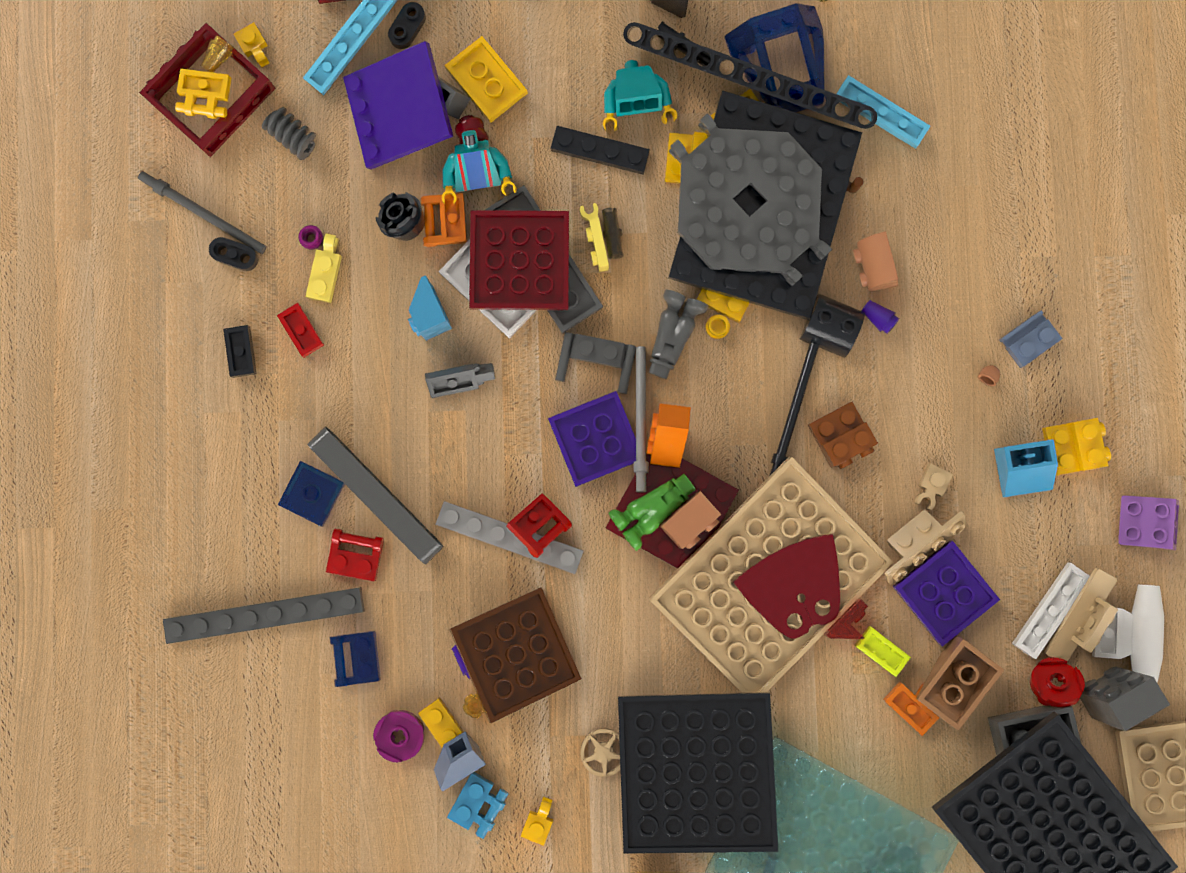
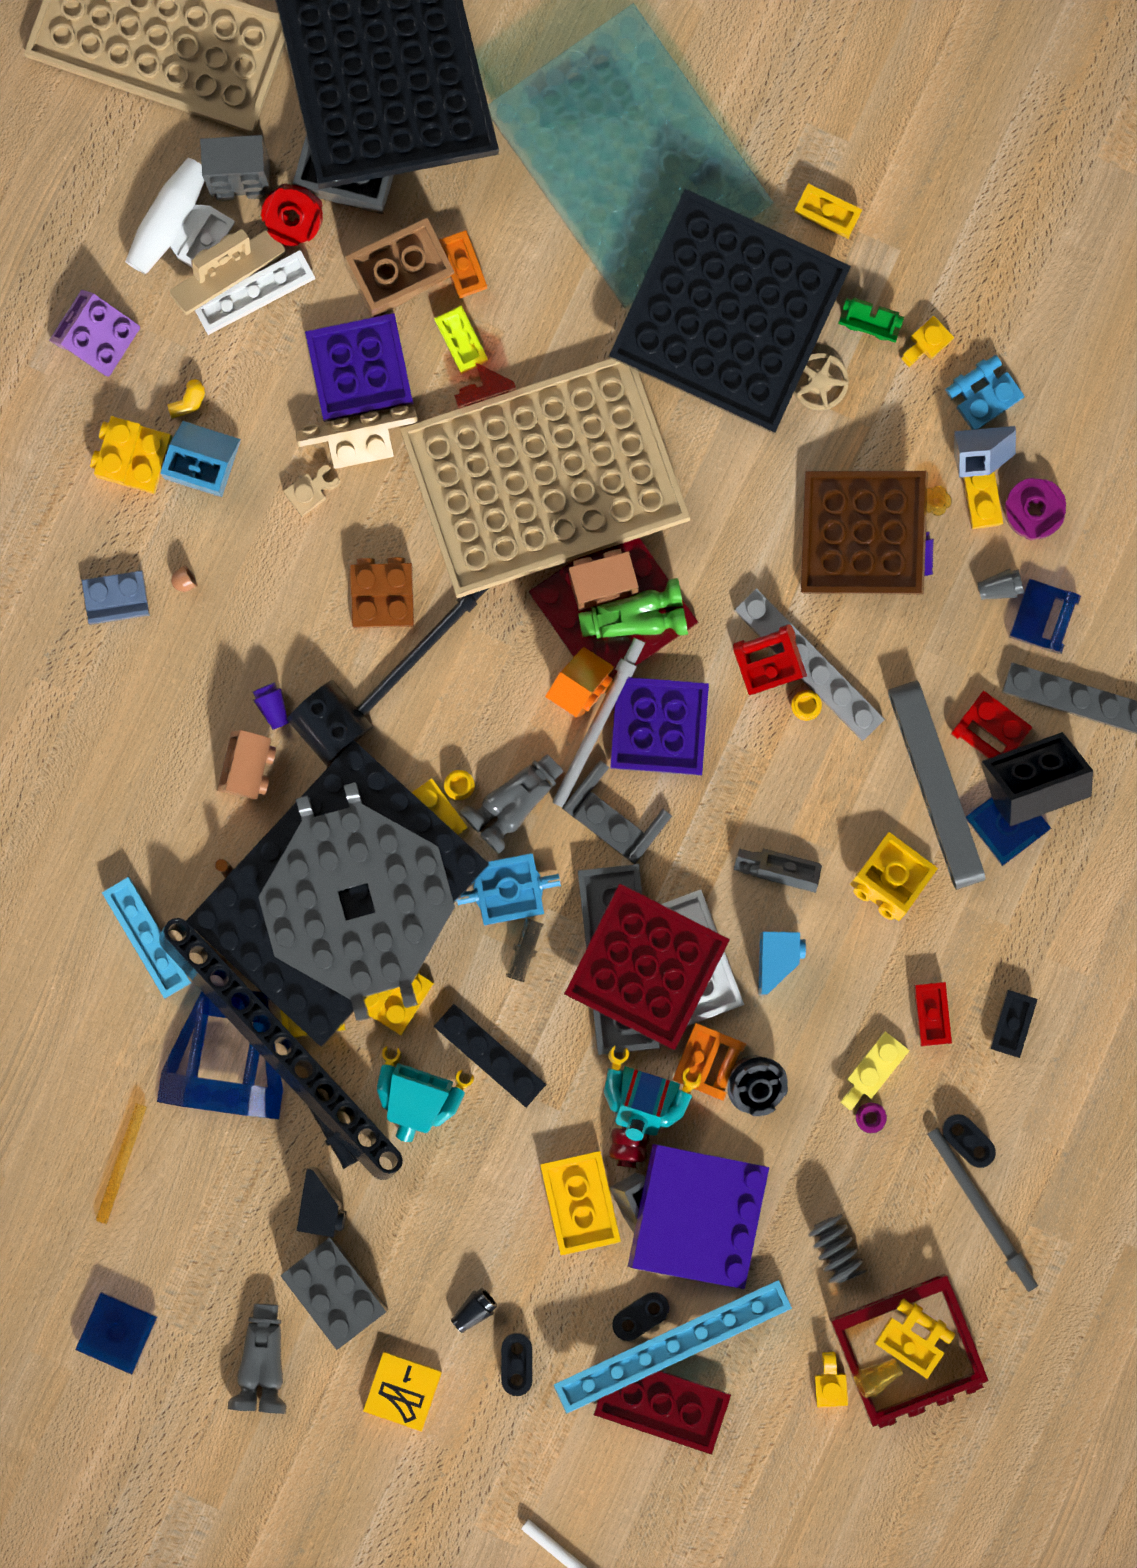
camera: 155 degrees left, 0 degrees up
(302, 534) = (1037, 778): none -> black slope
(374, 412) = (893, 877): none -> yellow plate
(396, 665) = (1001, 586): none -> dark grey cone
(497, 506) = (806, 705): none -> yellow plate
(578, 818) = (858, 317): none -> green hinge
(595, 235) = (546, 957): light yellow plate -> none
(644, 269) = (509, 890): none -> dark azure plate
(800, 568) = (510, 472): dark red piece -> none
(1054, 507) = (191, 400): none -> yellow arm

